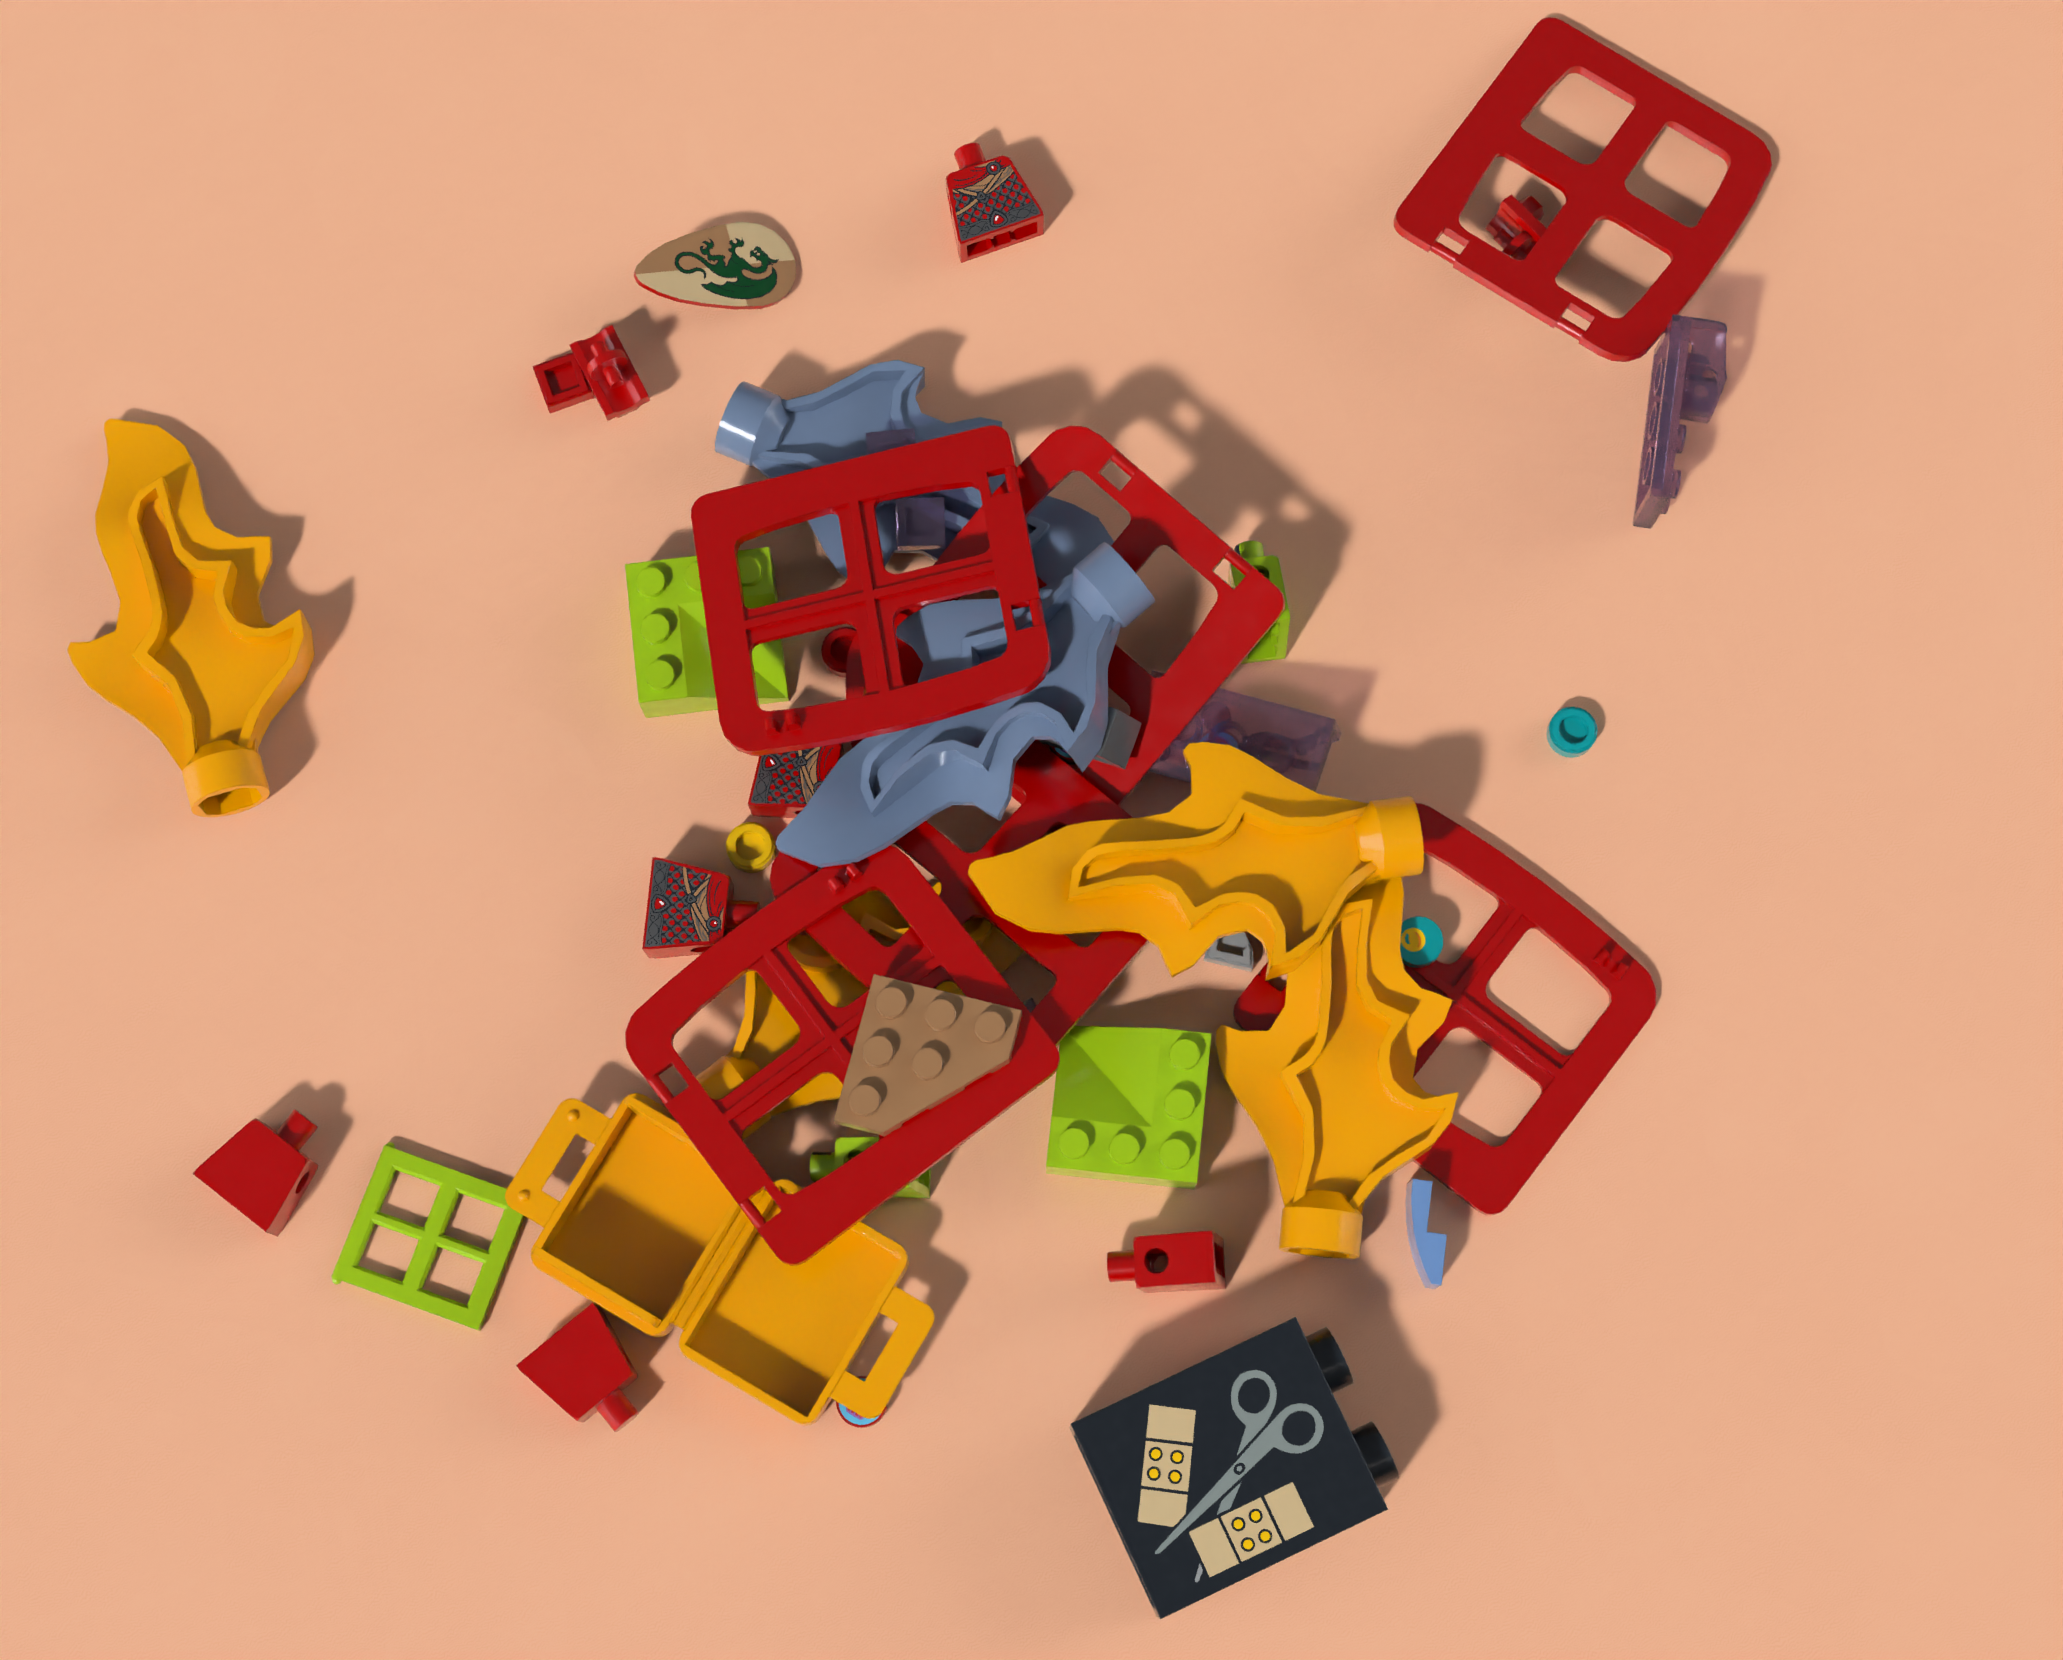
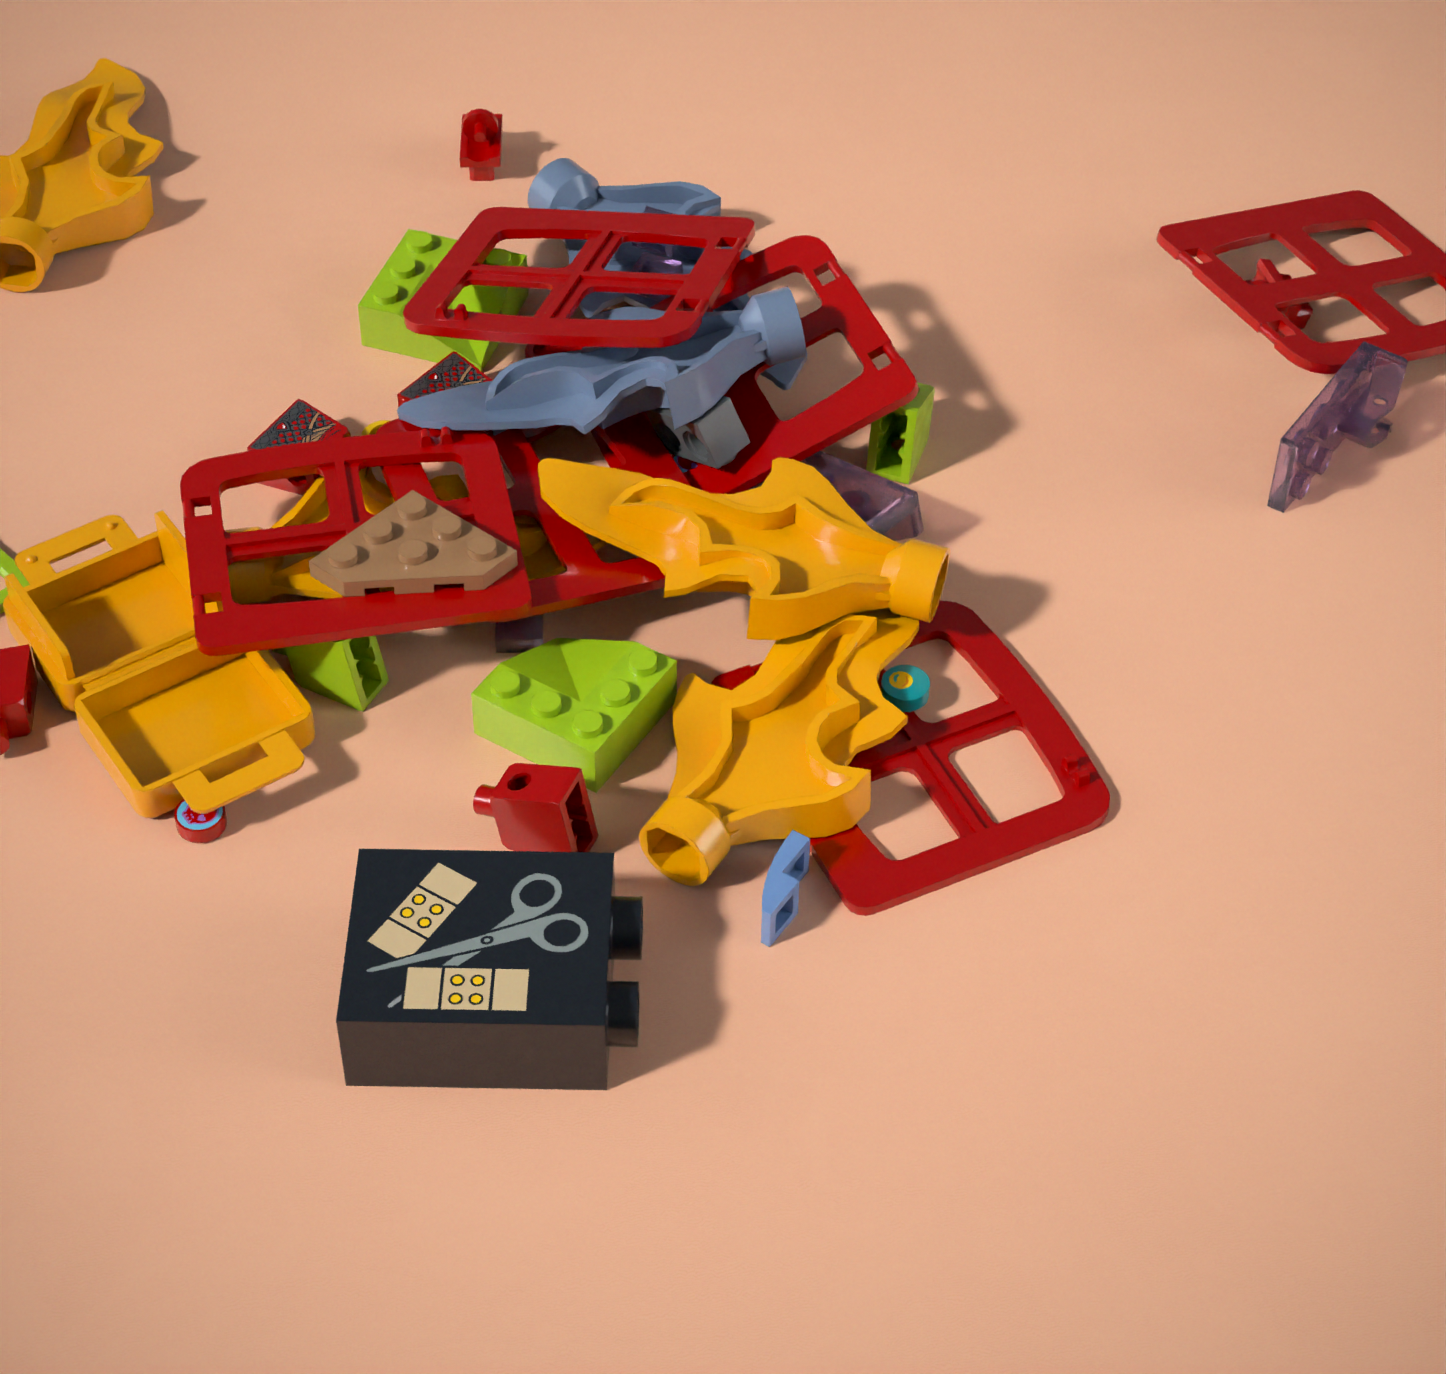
camera: 25 degrees right, 30 degrees down
(562, 382) = (442, 146): red tile -> none
(721, 268) = (607, 115): shield -> none
(989, 204) = (838, 150): torso -> none
(1231, 951) = (732, 639): light grey tile -> none
(1571, 732) = (1133, 610): teal tile -> none

